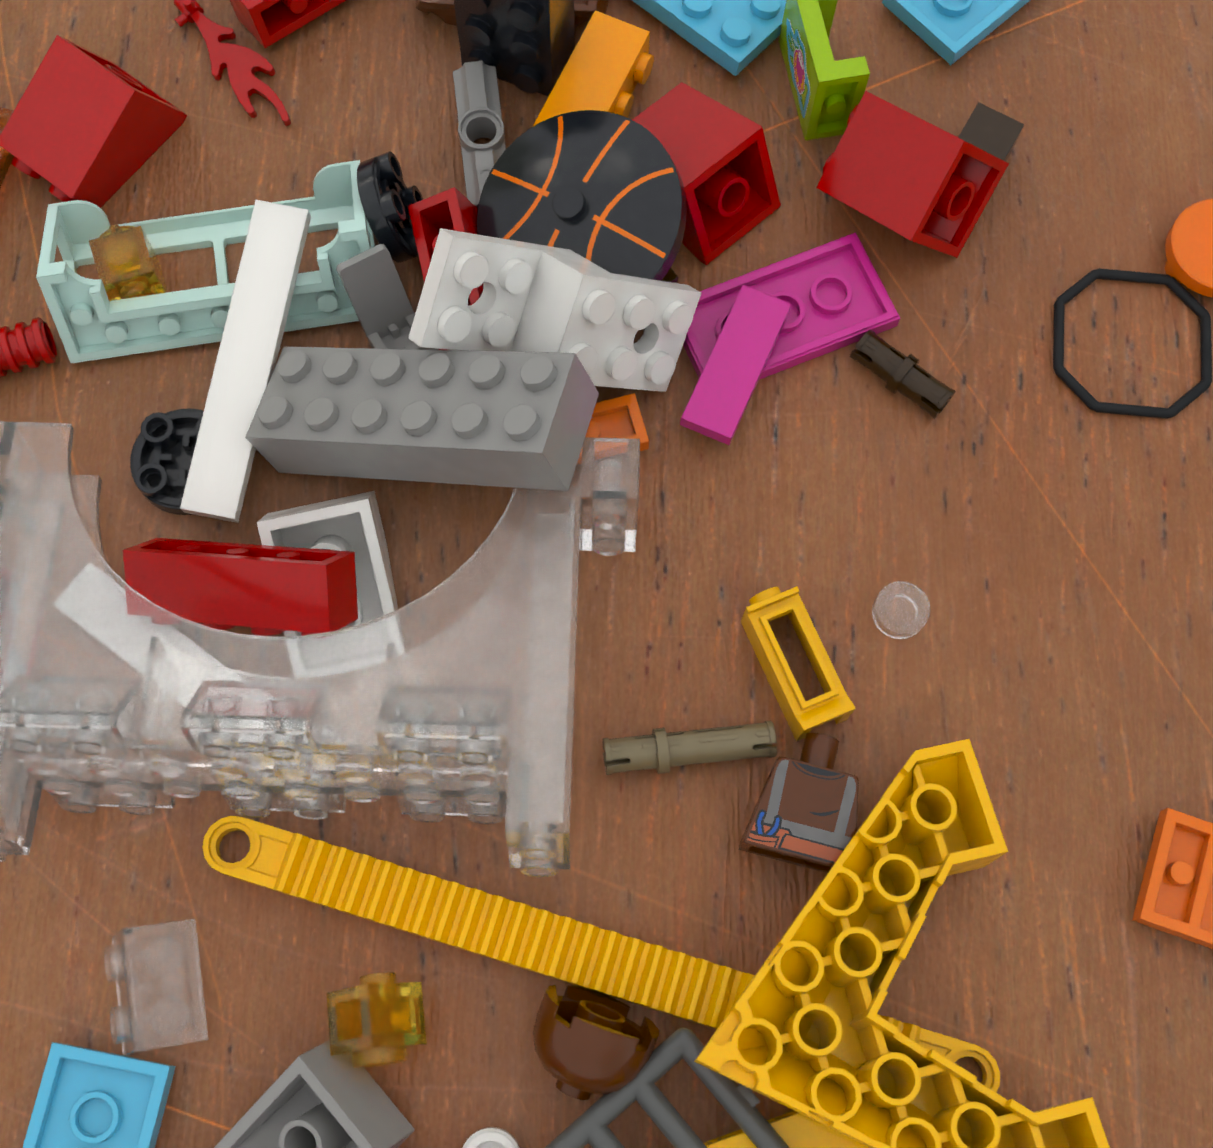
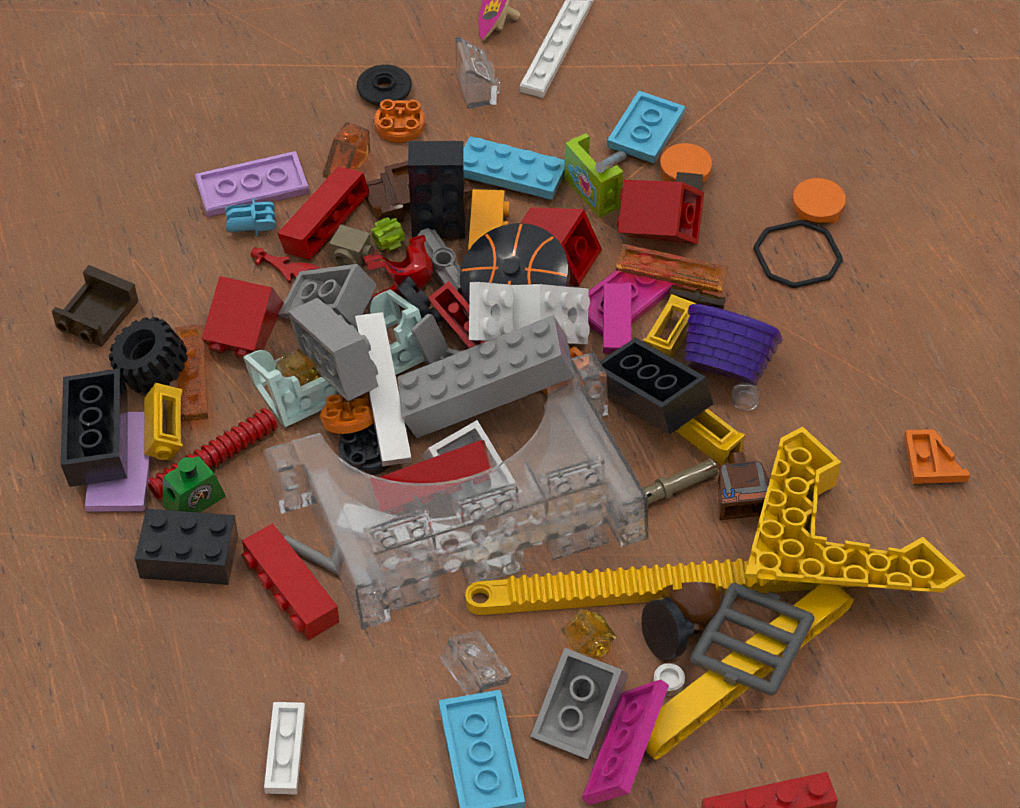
camera: 20 degrees left, 20 degrees down
(171, 381) = (347, 416): none -> orange tile
(177, 258) = (334, 348): none -> light grey brick
(253, 138) = (342, 287): none -> light grey slope
(339, 49) = (350, 246): none -> dark tan brick
(413, 46) = (387, 234): none -> lime gear
(417, 135) = (415, 265): none -> red piece
(520, 1071) = (665, 628): none -> black tile
(727, 546) = (655, 386): none -> black brick
(783, 460) = (679, 332): none -> yellow window
(860, 42) = (610, 161): none -> light grey bar
(880, 299) = (671, 268): none -> clear orange plate
(909, 504) = (729, 343): none -> dark purple piece
(1009, 81) = (685, 159): none -> orange tile

